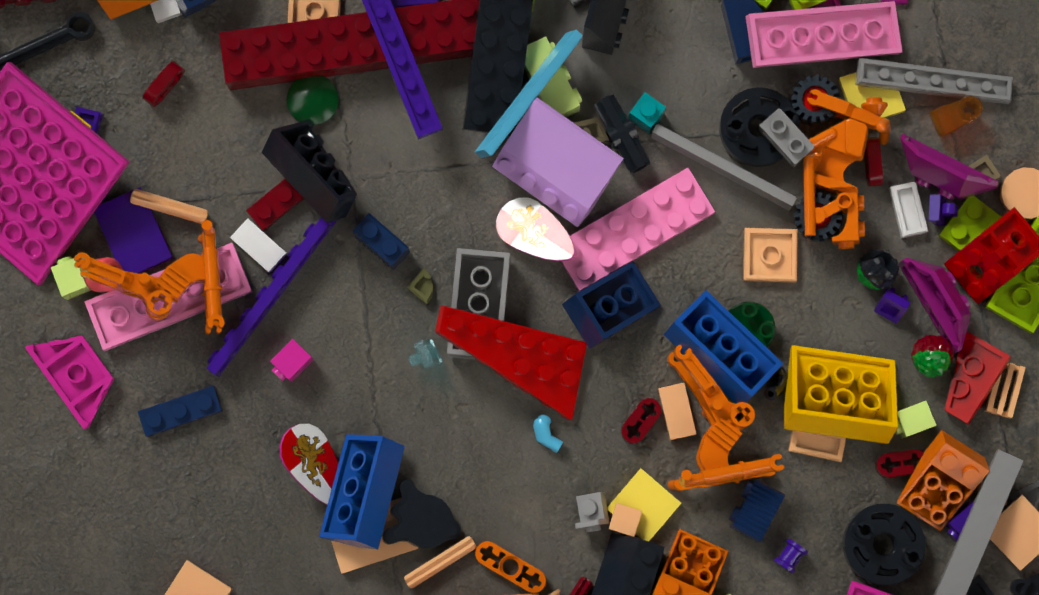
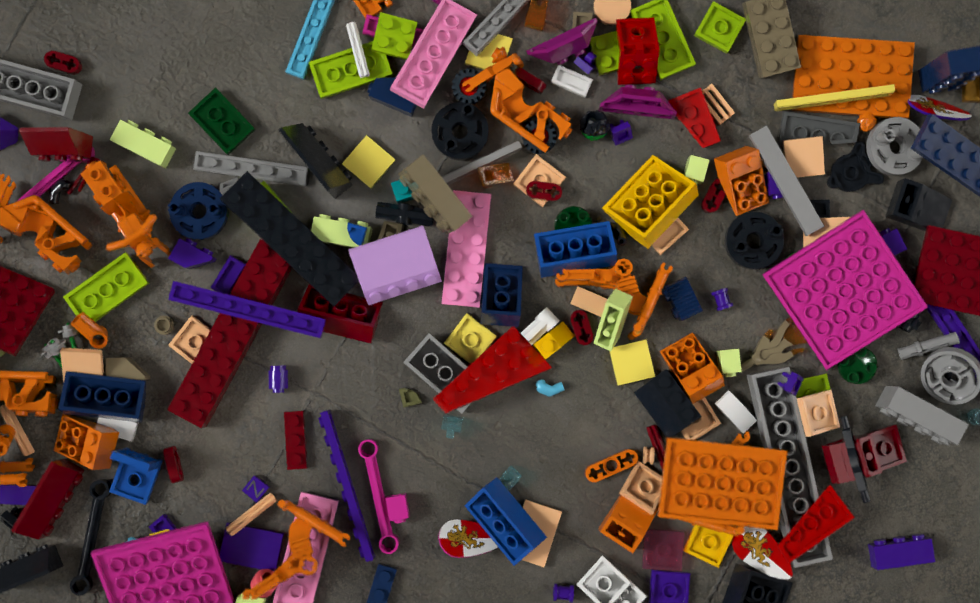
camera: 55 degrees left, 5 degrees up
(137, 47) = (139, 464): none -> blue bracket
(200, 191) = (255, 488): none -> dark purple tile
(258, 245) = (313, 477): white tile -> none
(288, 331) = (378, 496): none -> dark pink piece
(310, 170) = (291, 415): black wedge -> none
(312, 99) = (249, 382): dark green dish -> none
(339, 128) = (278, 378): none -> dark purple brick
(381, 241) = (365, 403): dark blue brick -> none
(414, 463) = (510, 477): none -> clear light blue slope
(422, 519) = (547, 497): black tile -> none
(440, 562) = (579, 502): light nougat axle -> none
(455, 148) = (348, 318): none -> dark red slope
(528, 94) = (342, 252): medium azure tile -> none
(534, 230) = (425, 308): shield -> none
(537, 304) = (470, 339): none -> light yellow tile
(562, 95) = (357, 233): none -> blue tile
(592, 511) = (614, 395): light grey bracket -> none
(603, 399) = (553, 340): none -> yellow slope
(615, 373) = (543, 323): none -> white piece
(625, 520) = (633, 379): light nougat tile -> none
(650, 53) = (368, 162): none -> light yellow tile
(666, 146) = (434, 195): none -> dark tan brick
(675, 445) = (613, 319): none -> yellowish green brick
(739, 200) = (495, 175): none -> clear orange slope
(756, 270) = (542, 195): none -> dark red beam
(786, 137) = (480, 120): light grey bracket -> none
(932, 355) = (667, 131): piece -> none

